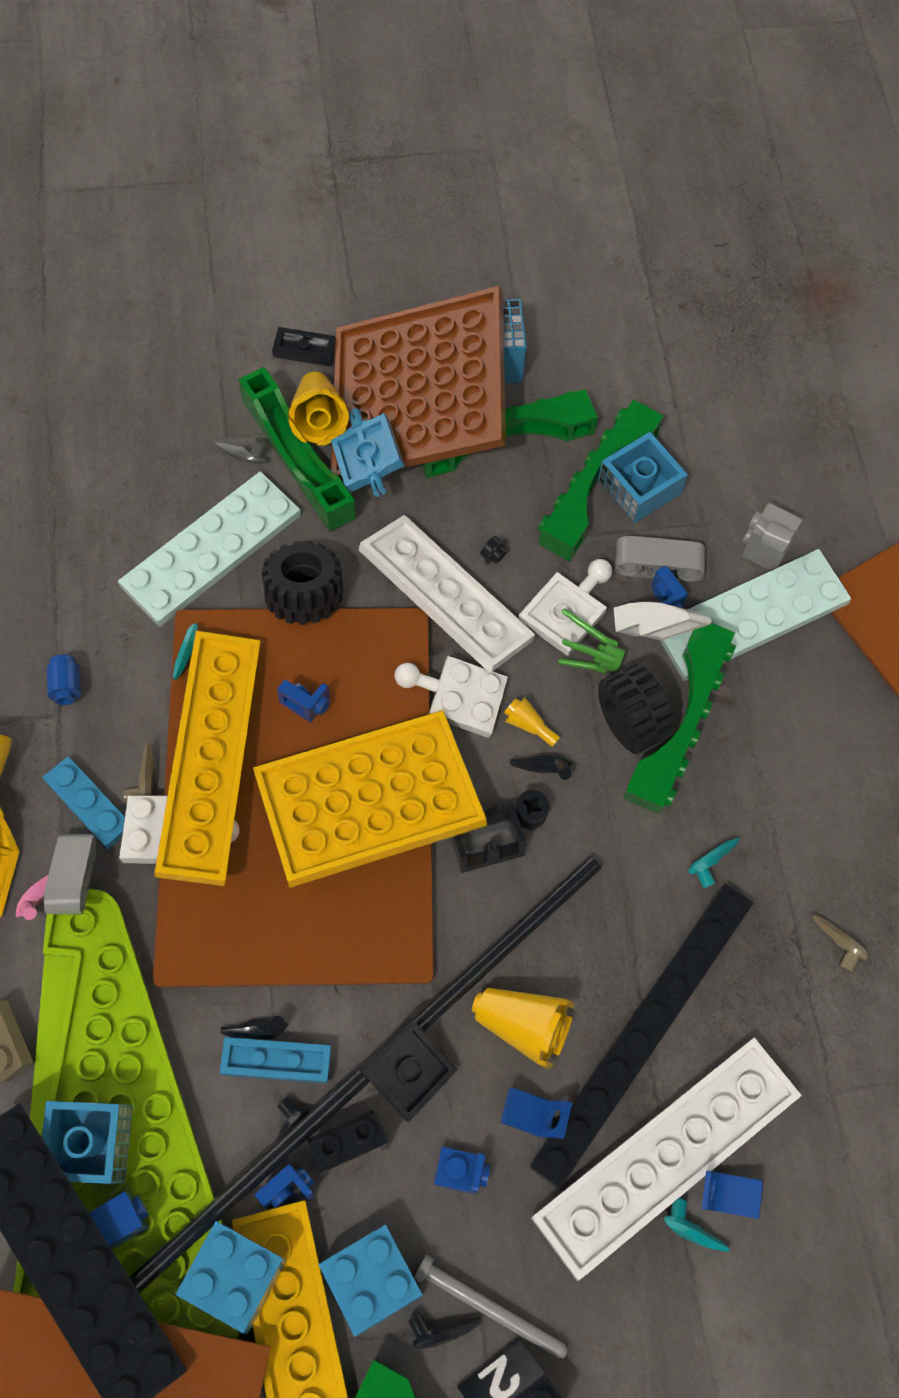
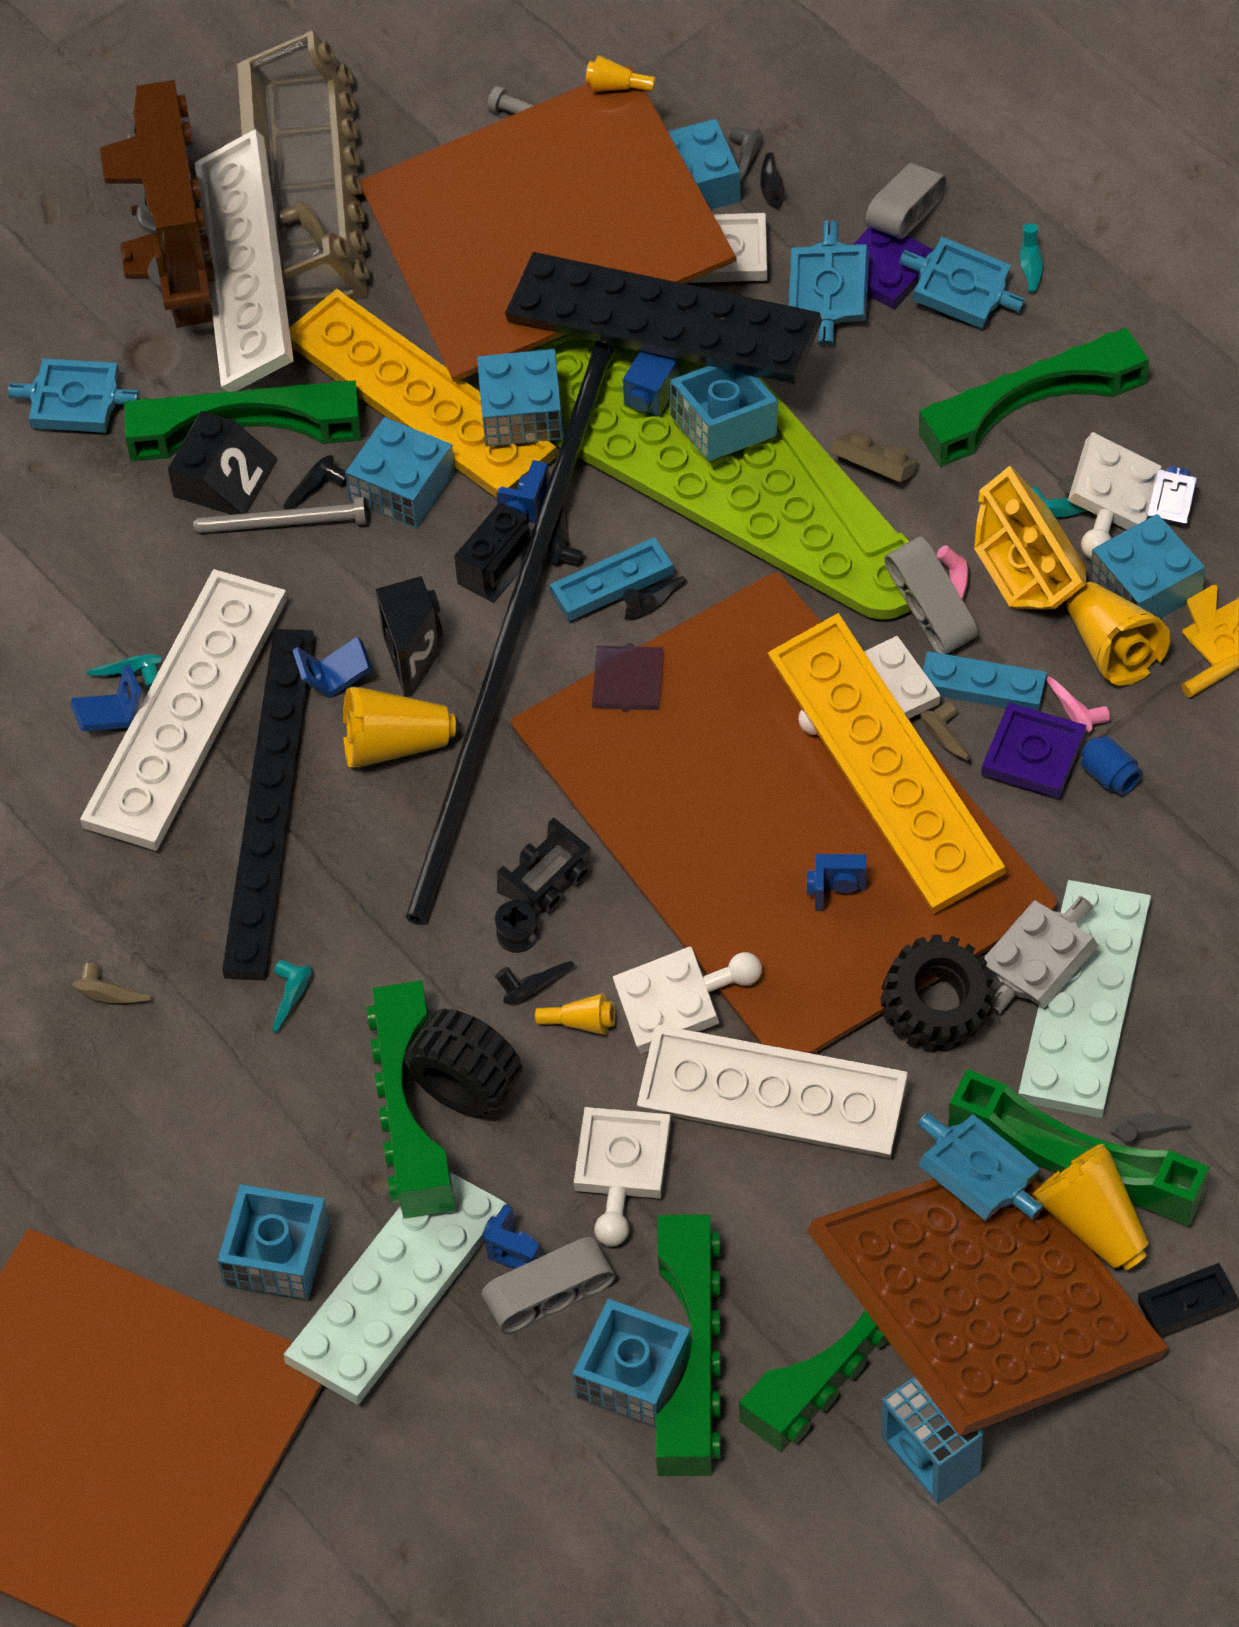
camera: 155 degrees right, 10 degrees down
(48, 738) = (1076, 710): none -> bright pink bar
(100, 724) = (1033, 750): none -> dark purple plate
(185, 651) = (1012, 877): teal bar -> none
(217, 576) = (1039, 954): none -> light grey plate
(325, 959) = (627, 677): none -> piece
(368, 798) = (690, 820): yellow plate -> none
(408, 1070) = (478, 632): black tile -> none
(461, 1171) = (362, 594): blue bracket -> none
(462, 1095) = (410, 629): none -> black slope
(494, 550) = (754, 1181): black plate -> none
(607, 656) = (537, 1126): bright green plant -> none
(656, 620) = (497, 1171): white slope -> none
(770, 536) = (422, 1366): light grey hinge -> none
(821, 673) = (273, 1242): none -> dark azure brick

